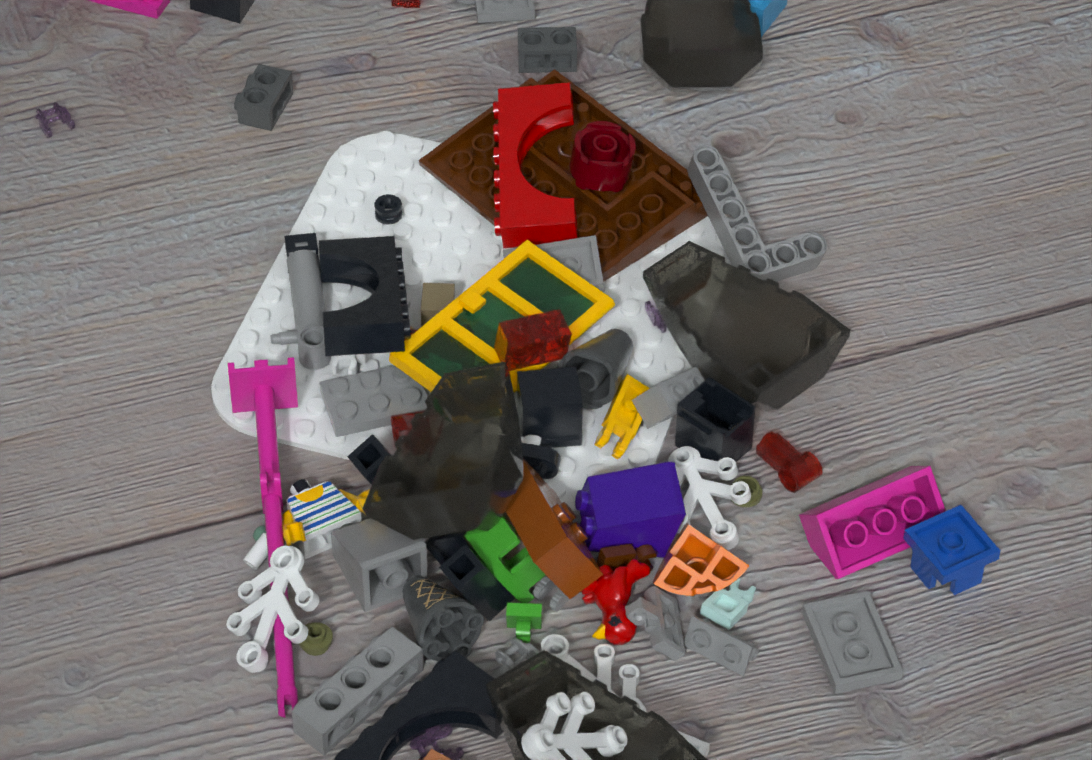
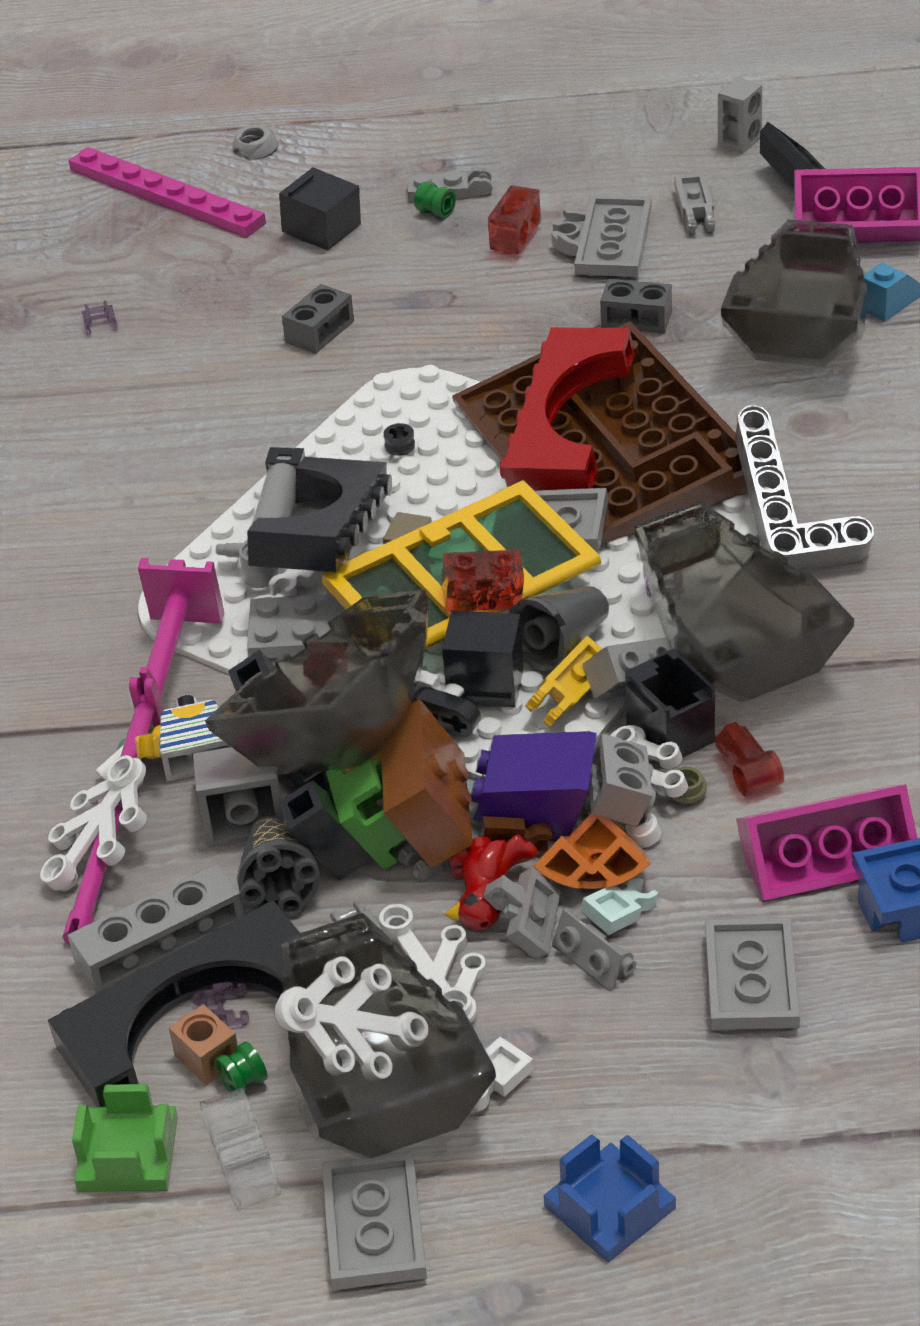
camera: 20 degrees right, 5 degrees down
(317, 645) = (138, 866): olive plate -> none
(524, 618) = (373, 882): bright green tile -> none
(602, 157) = (640, 408): dark red brick -> none
(704, 499) = (621, 780): none -> light grey brick

